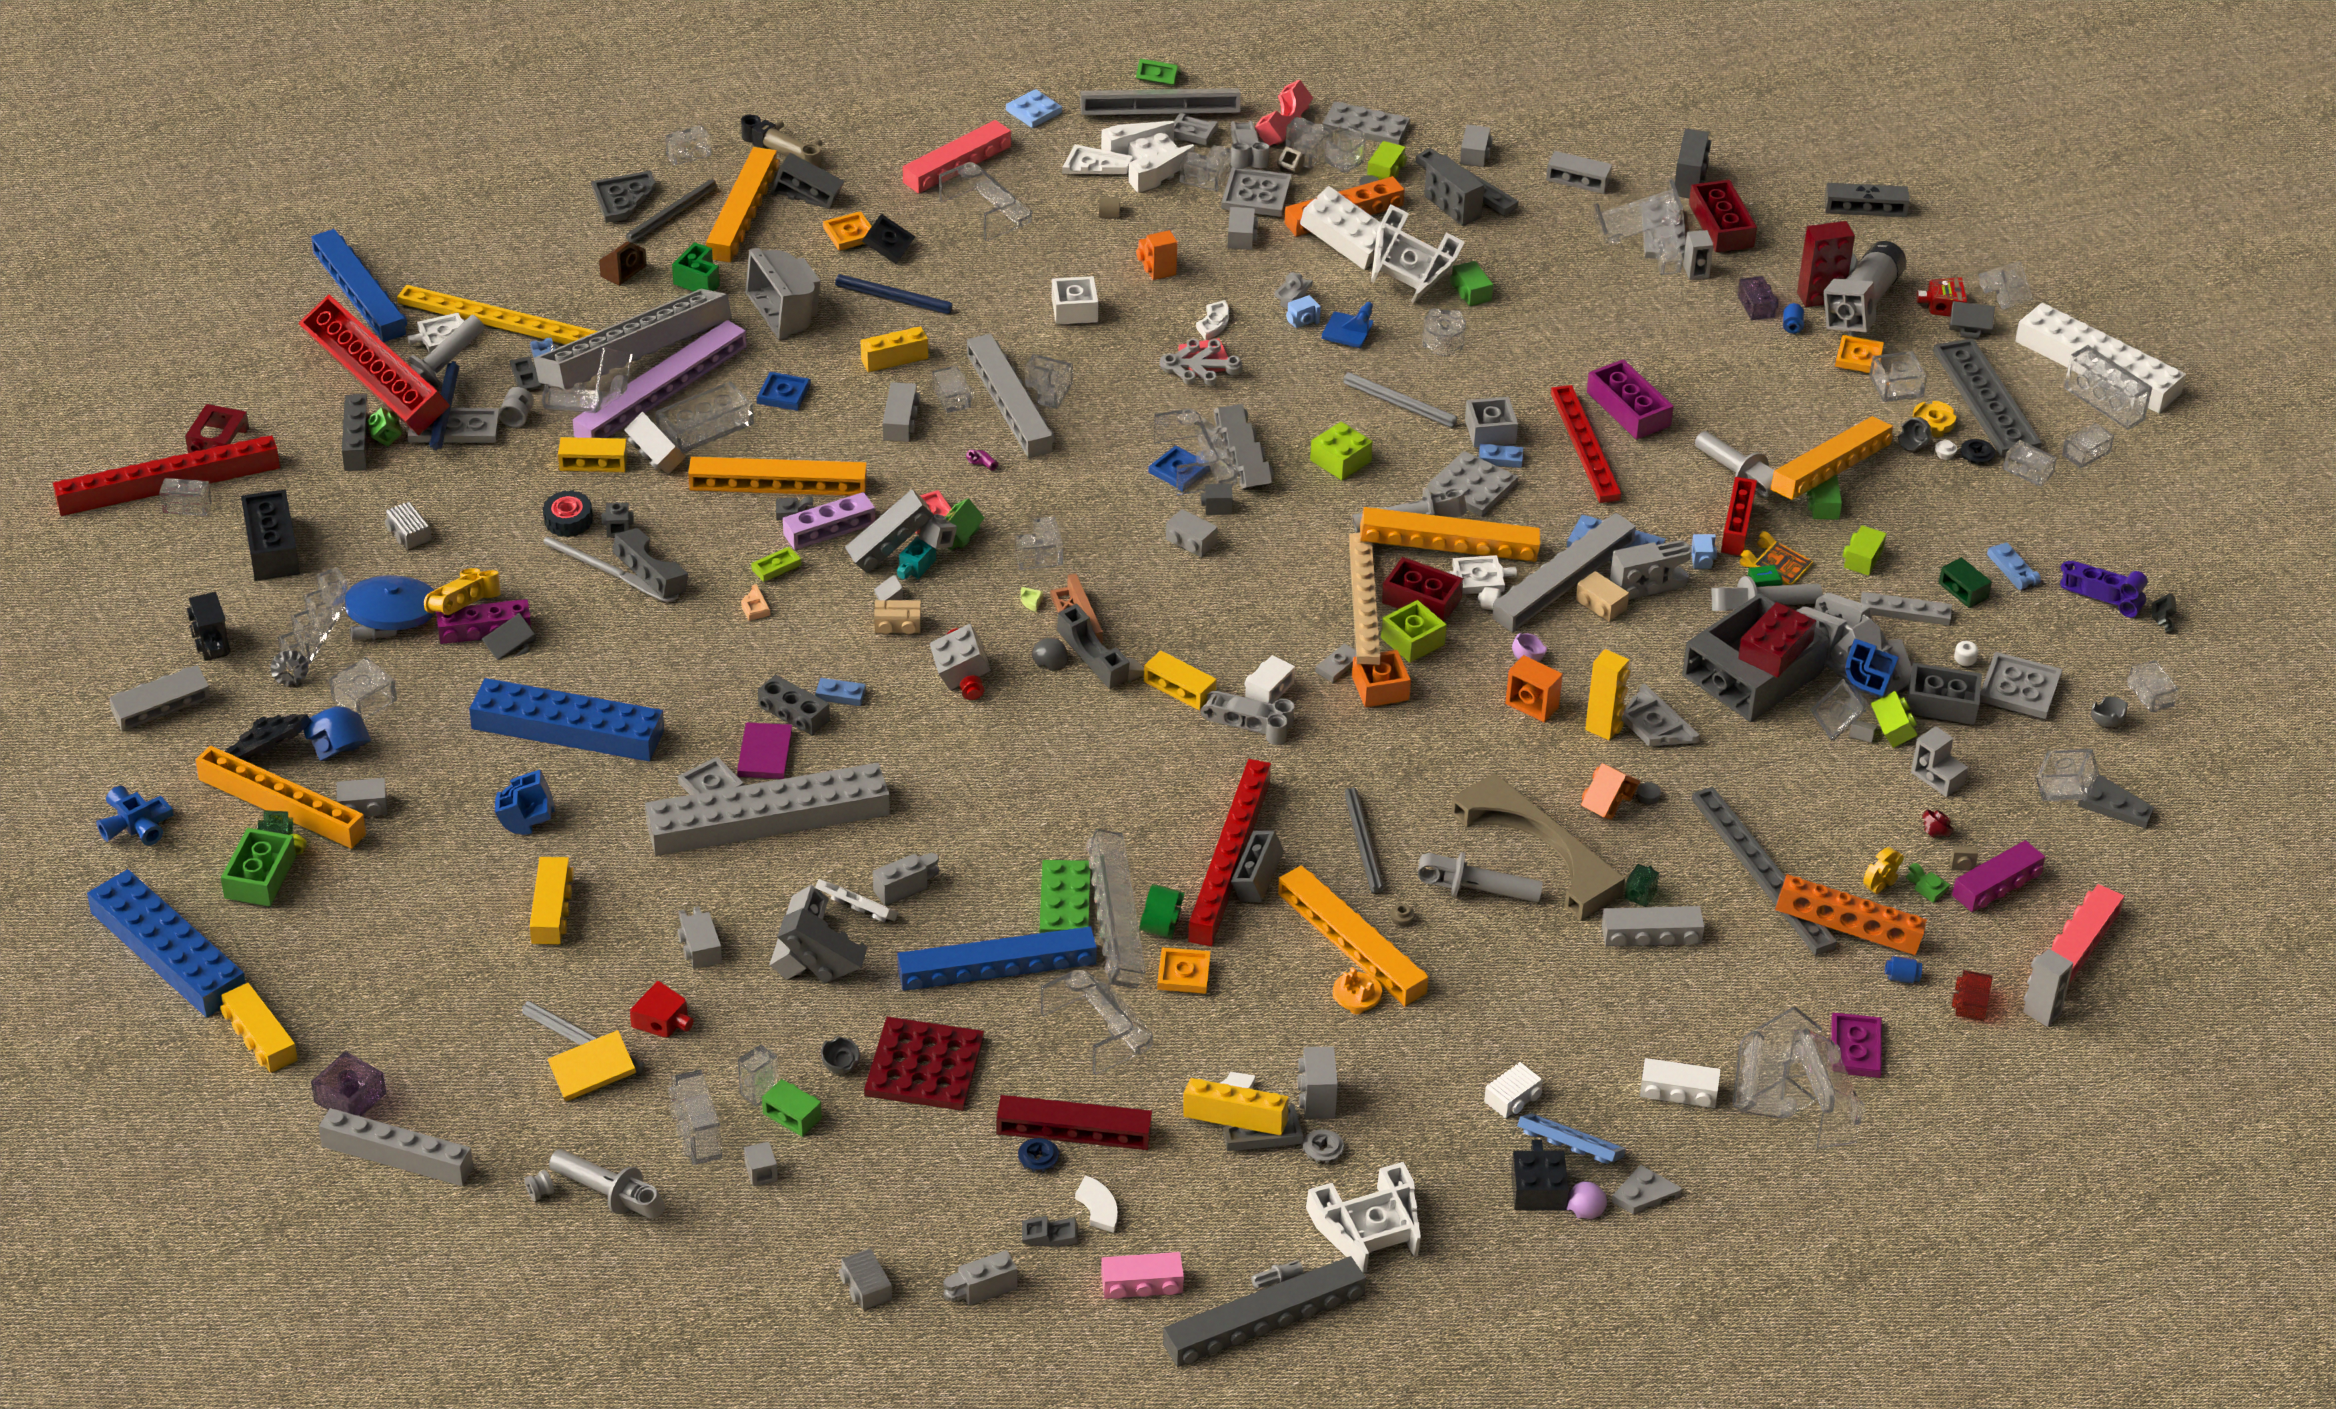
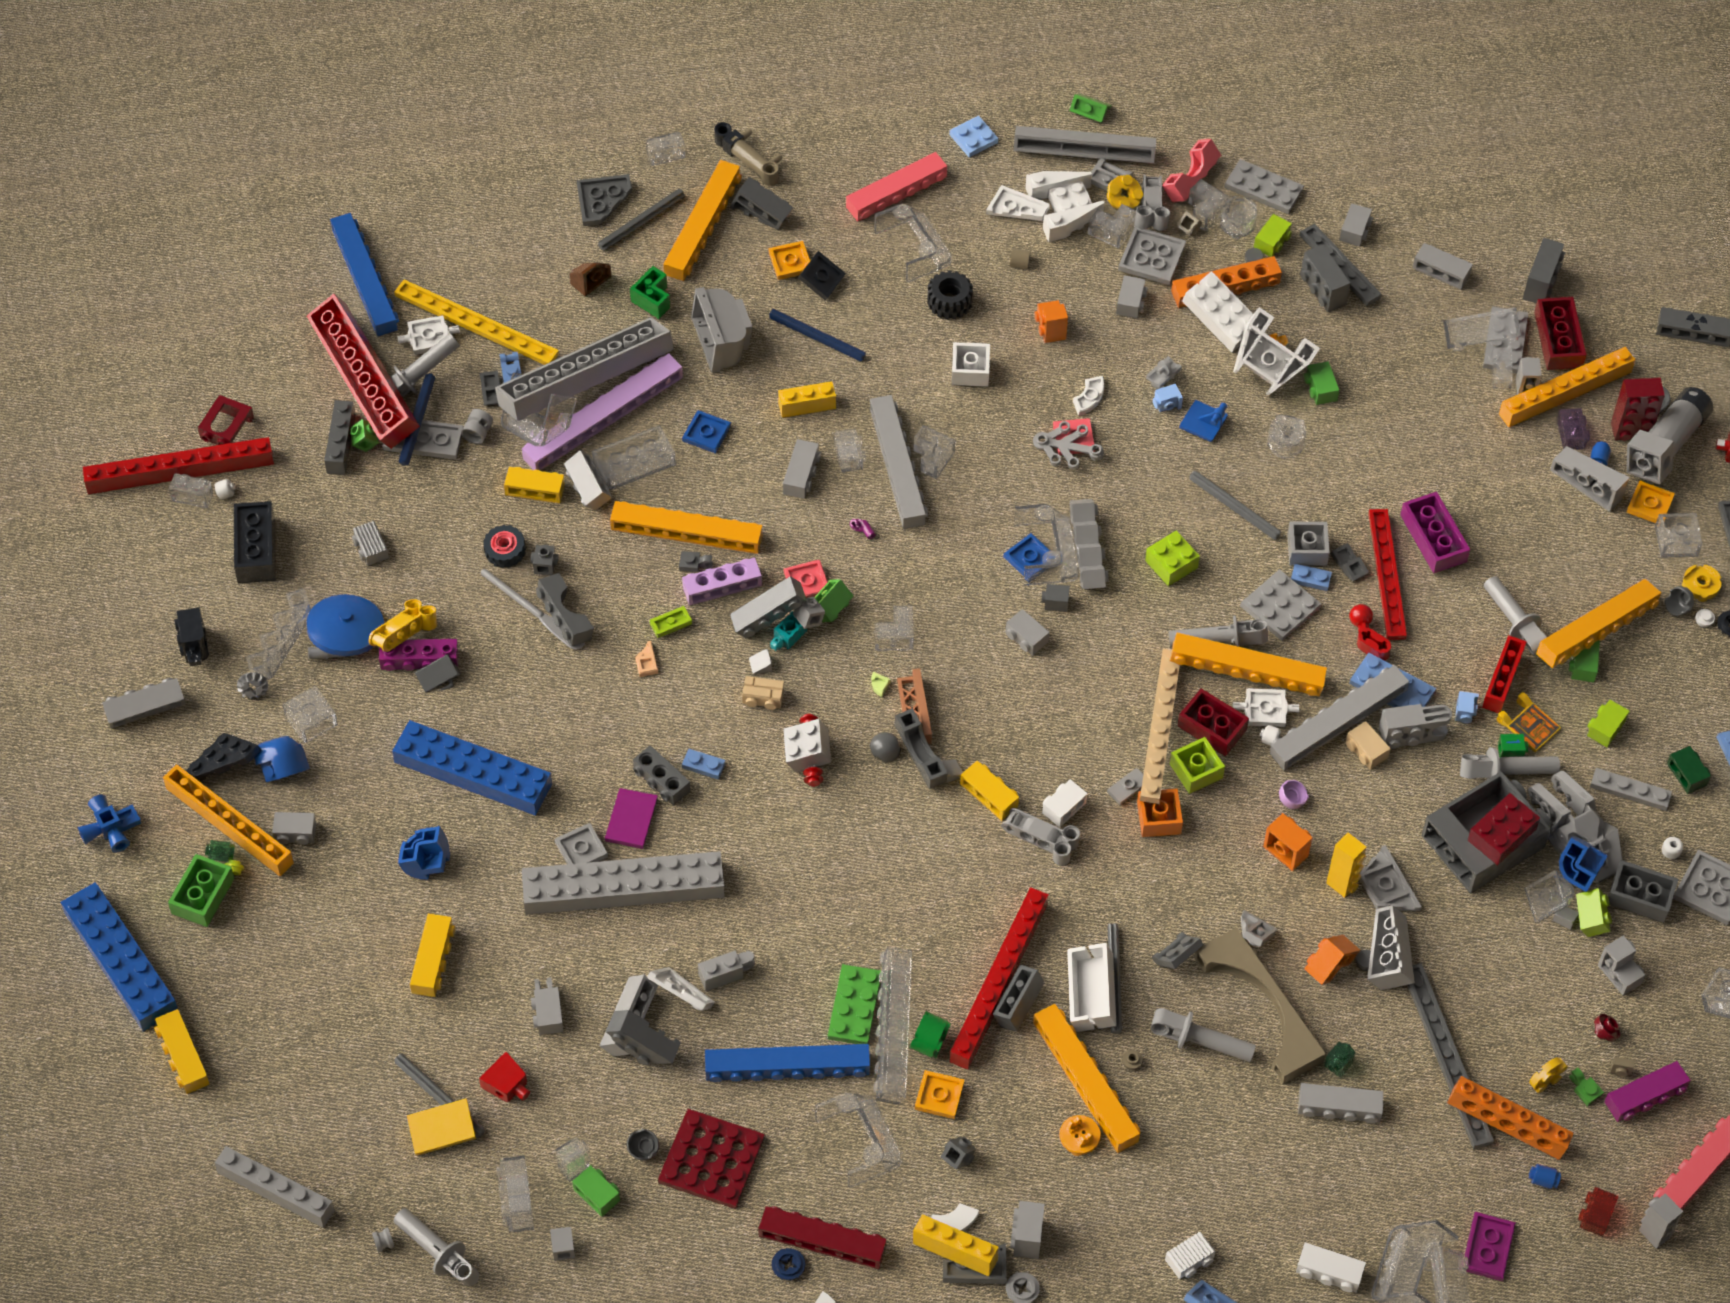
camera: 10 degrees right, 15 degrees up
(225, 493) = (224, 489): none -> white piece
(348, 1085) = (244, 1124): brick -> none
(1037, 243) = (950, 306): none -> black tyre
(1212, 128) = (1129, 184): none -> yellow plate
(1219, 1020) = (958, 1152): none -> dark grey brick
(1340, 845) = (1091, 987): none -> white piece
(1431, 804) = (1177, 951): none -> dark grey plate
(1518, 776) = (1255, 929): none -> light grey wing
(1539, 439) = (1349, 563): none -> dark grey slope
(1578, 500) = (1368, 639): none -> red beam
(1675, 777) = (1390, 950): none -> light grey wedge
(1740, 262) = (1567, 387): none -> light orange brick
(1789, 336) = (1591, 477): none -> light grey wedge

